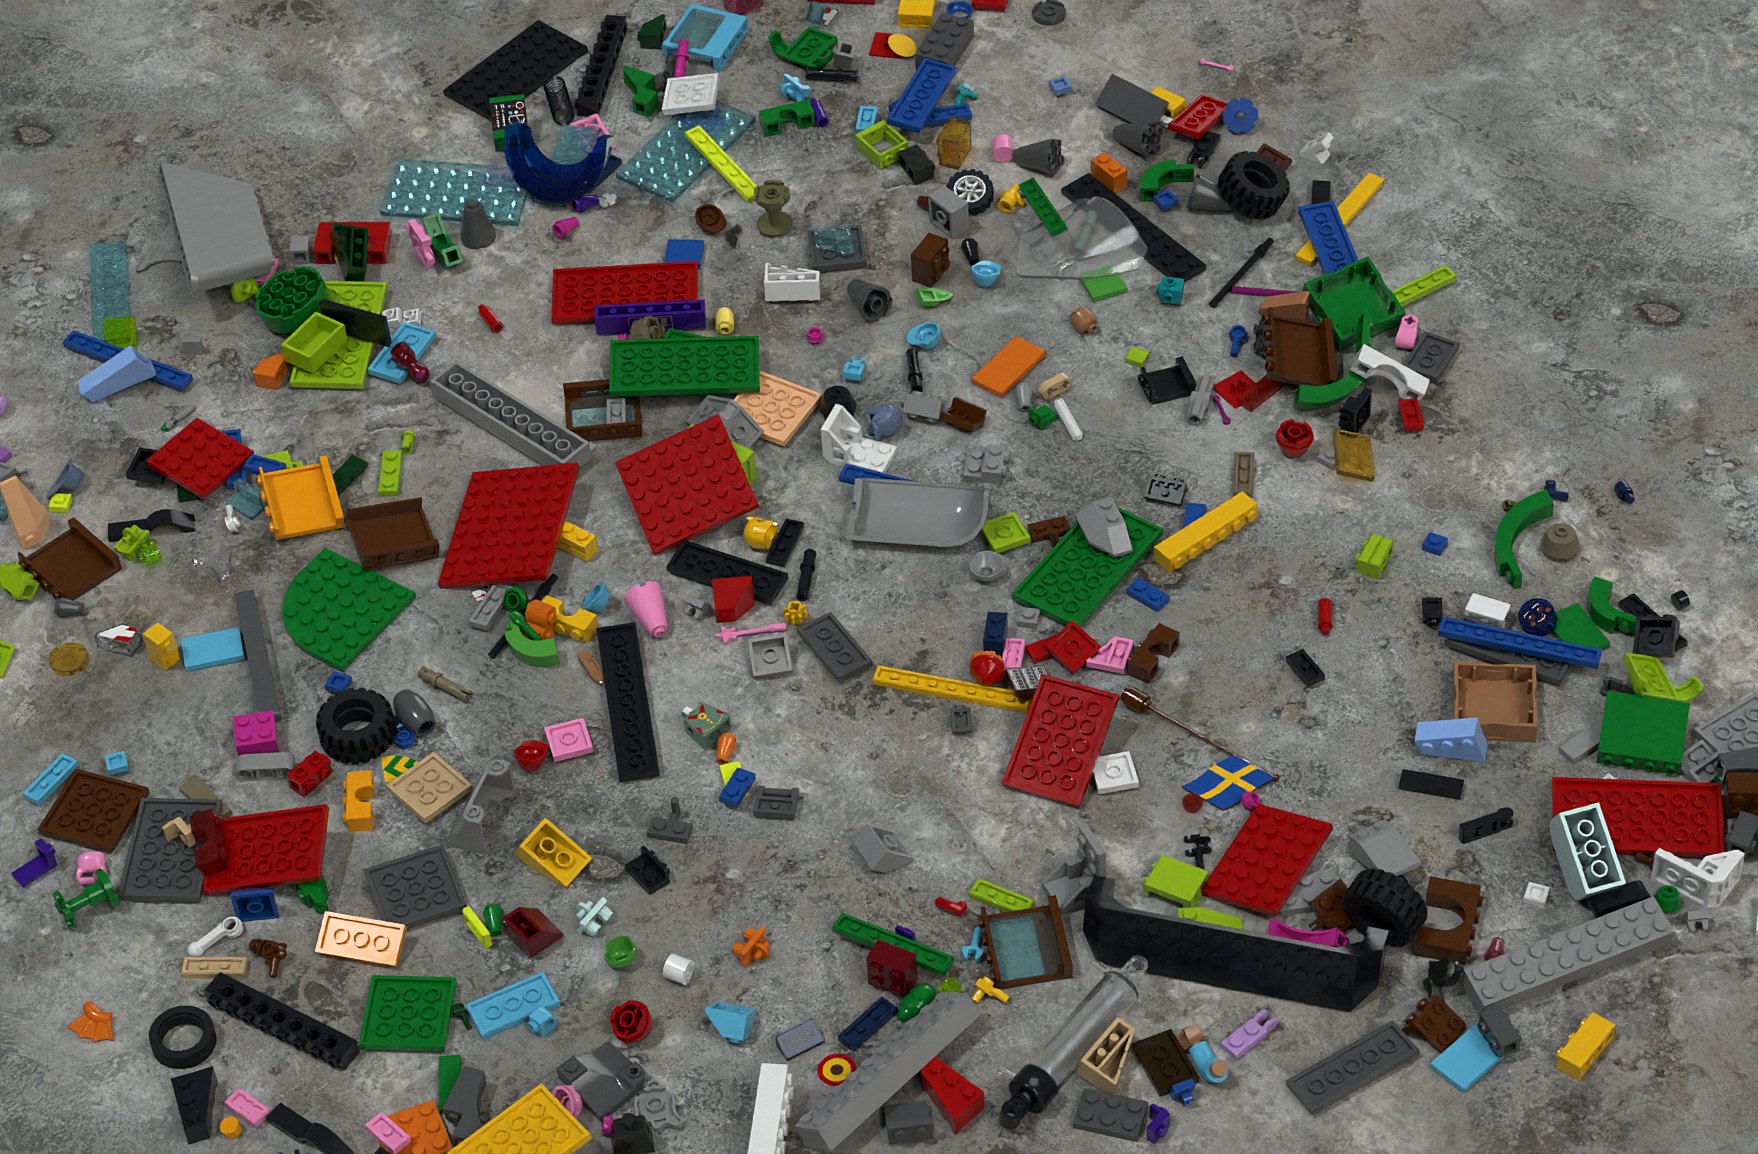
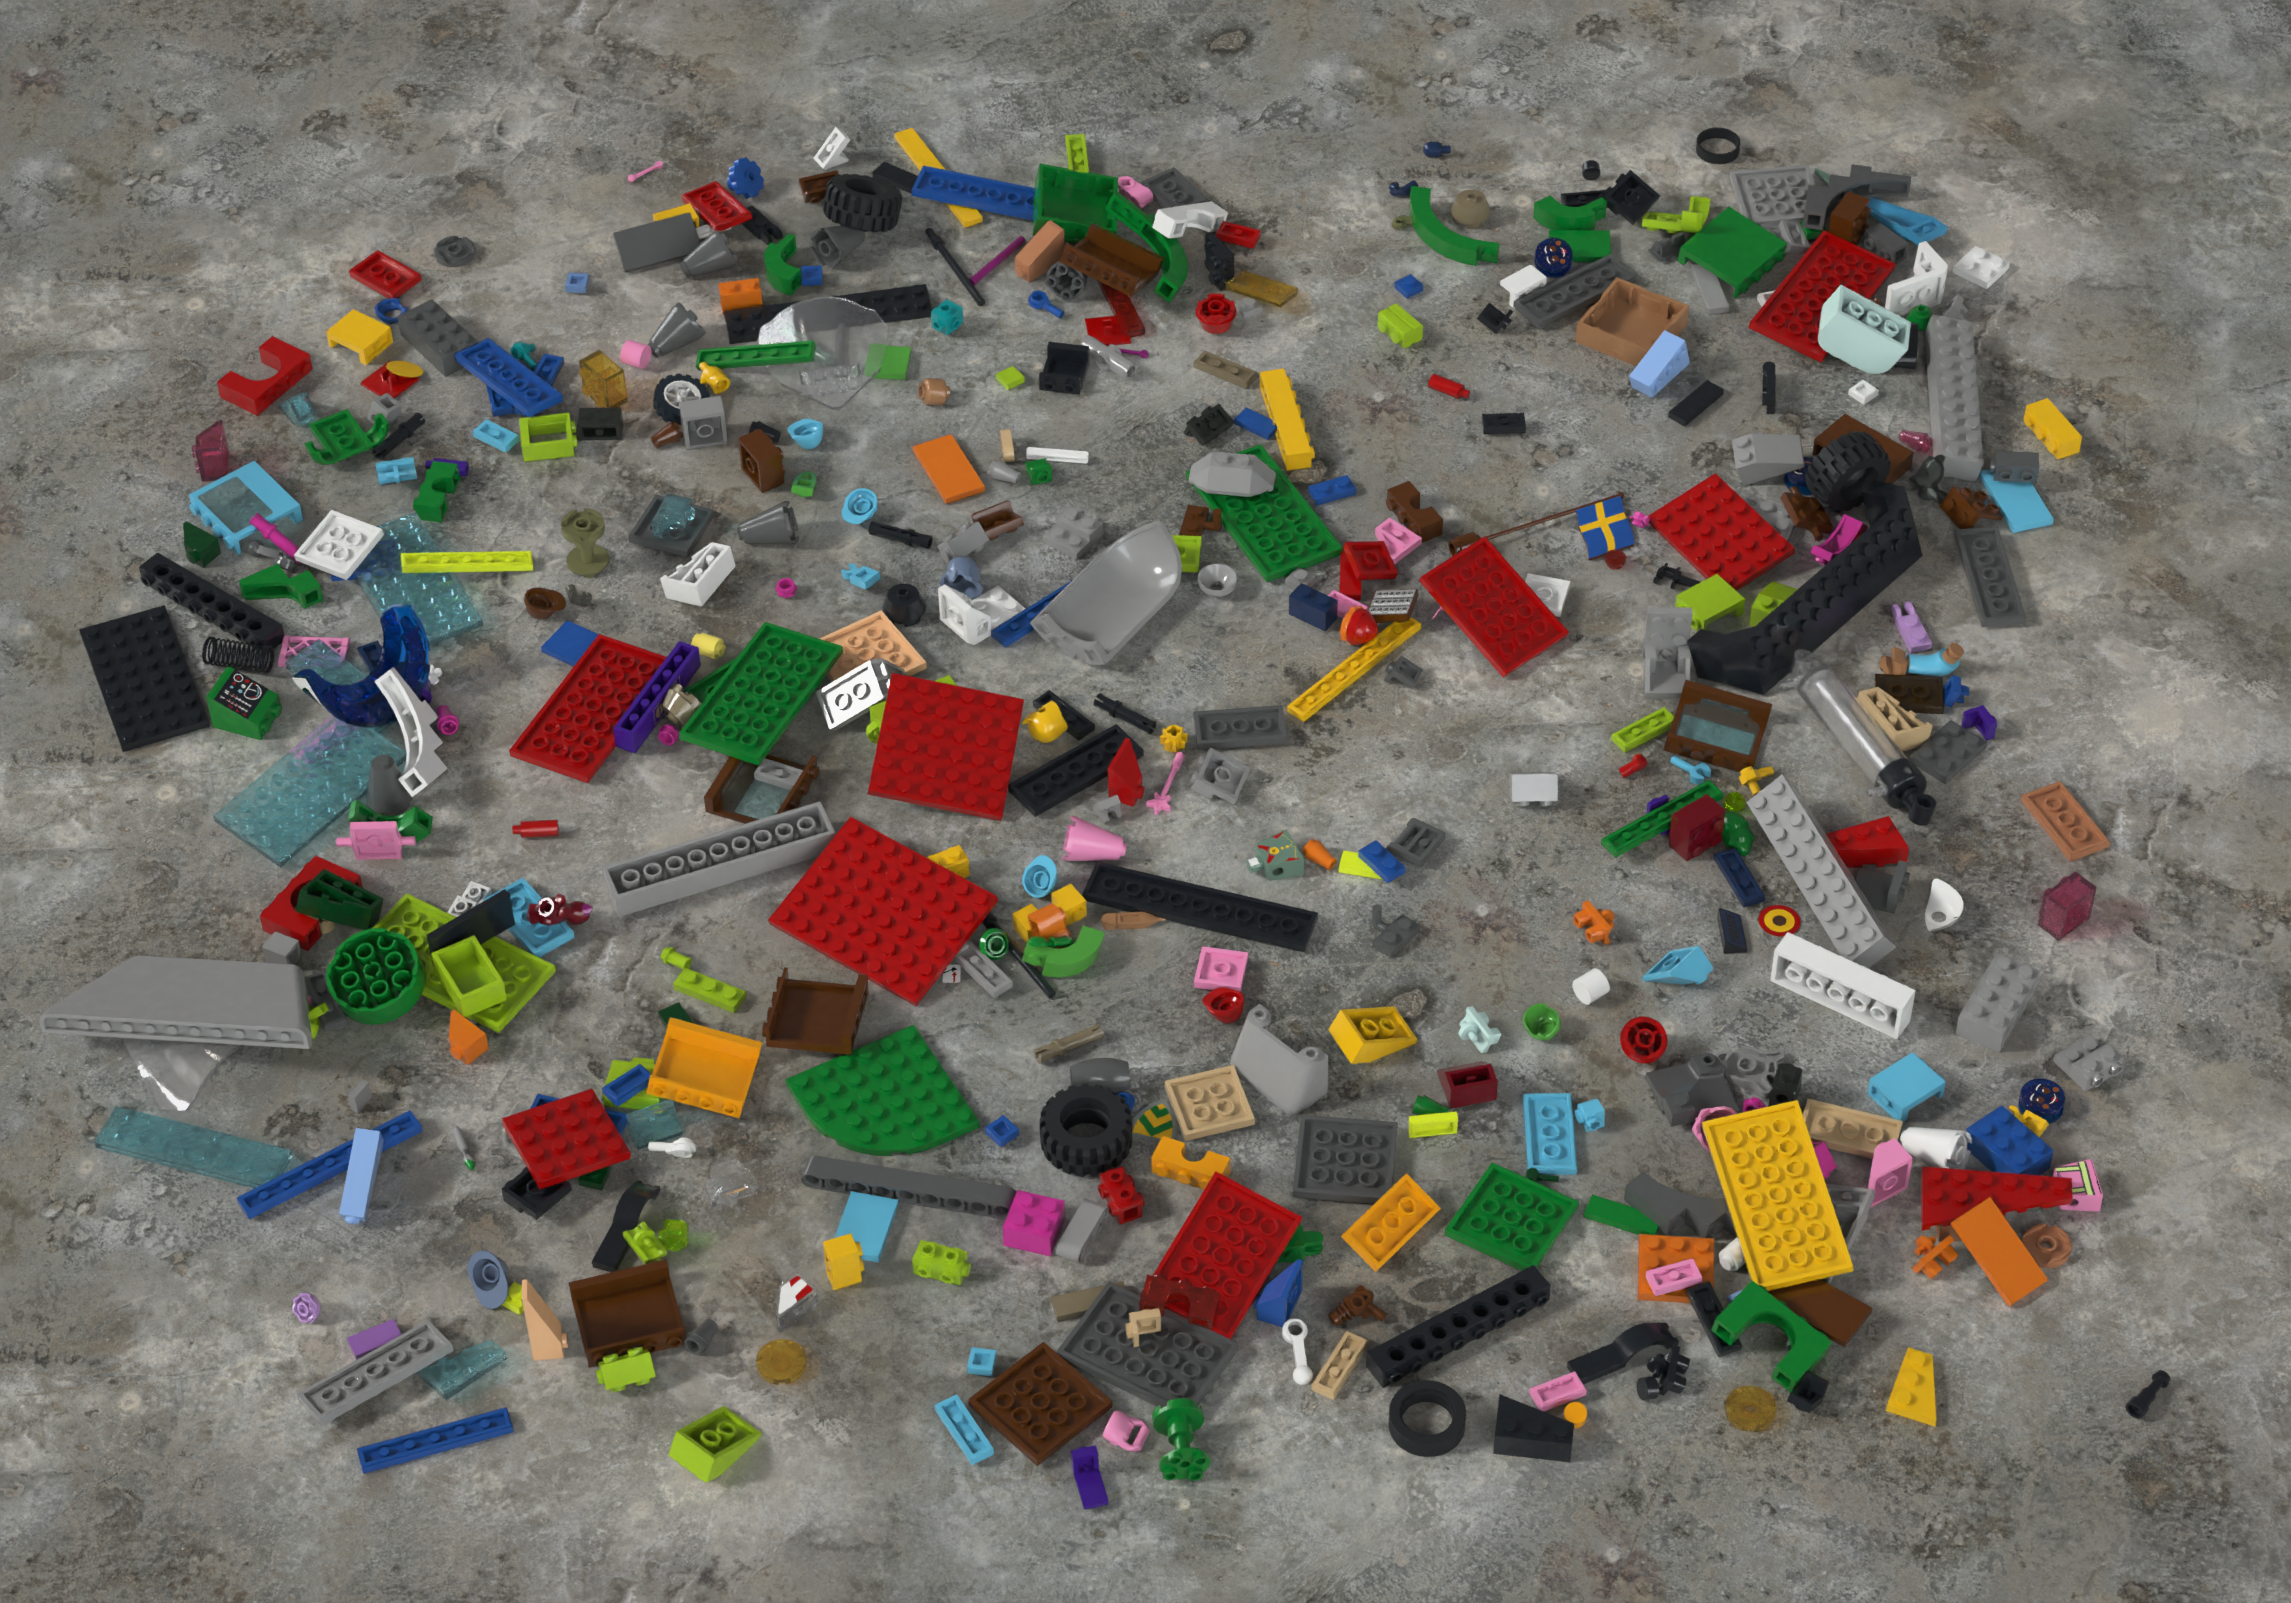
camera: 65 degrees left, 0 degrees up
(93, 1023) = (1354, 1495): orange arm -> none
(120, 331) = (281, 1151): clear neon green piece -> none
(195, 701) = (941, 1262): none -> lime brick
(528, 221) = (420, 739): none -> white arch
(648, 871) = (1442, 968): black bracket -> none
(1520, 642) = (1579, 278): blue plate -> none

